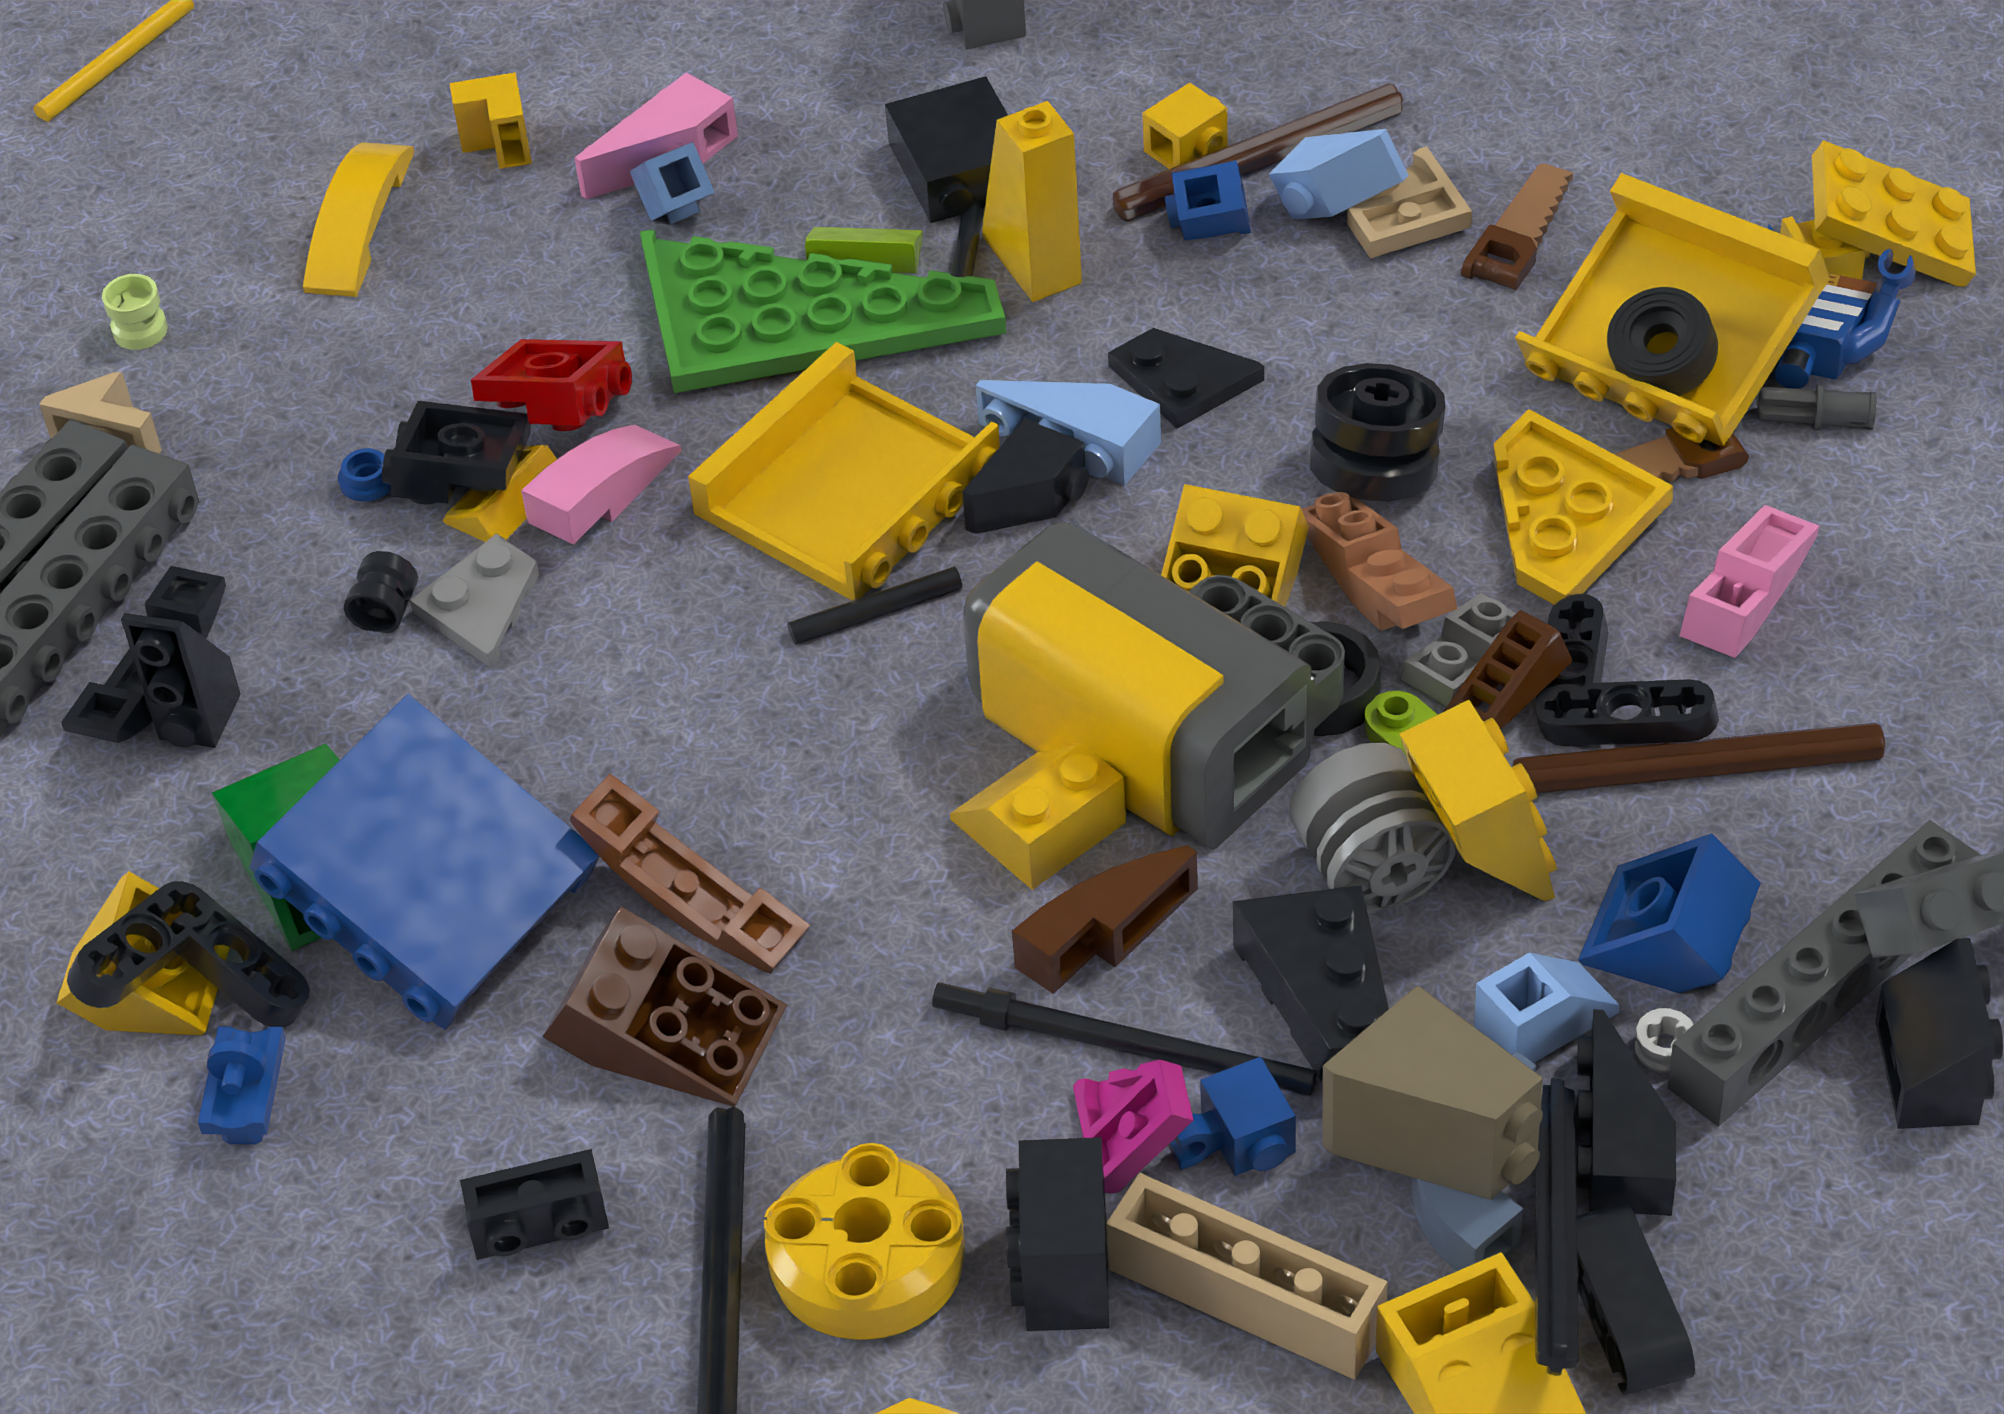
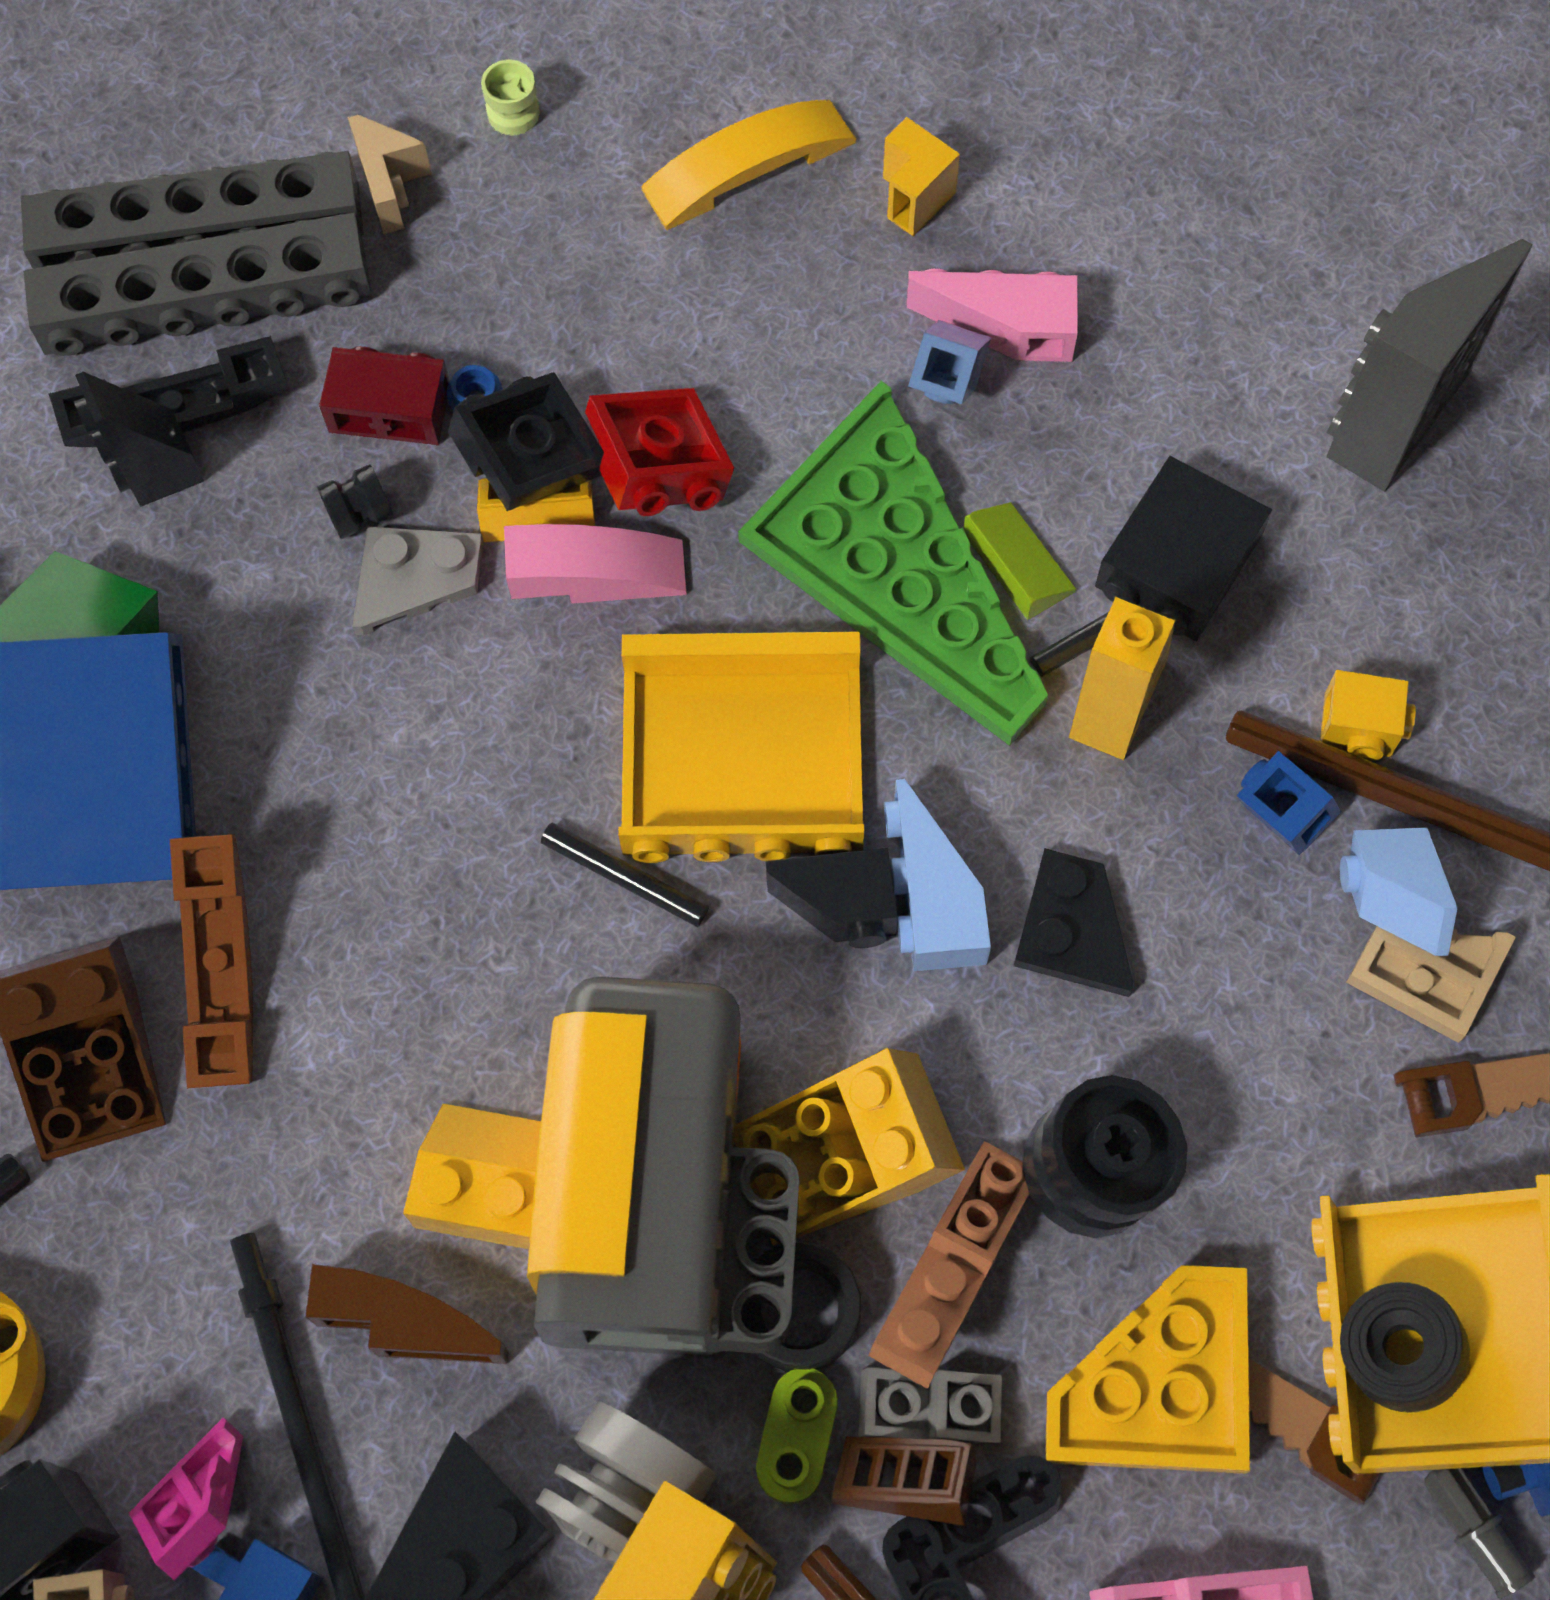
camera: 50 degrees right, 20 degrees up
(310, 524) = (385, 395): none -> dark red hinge

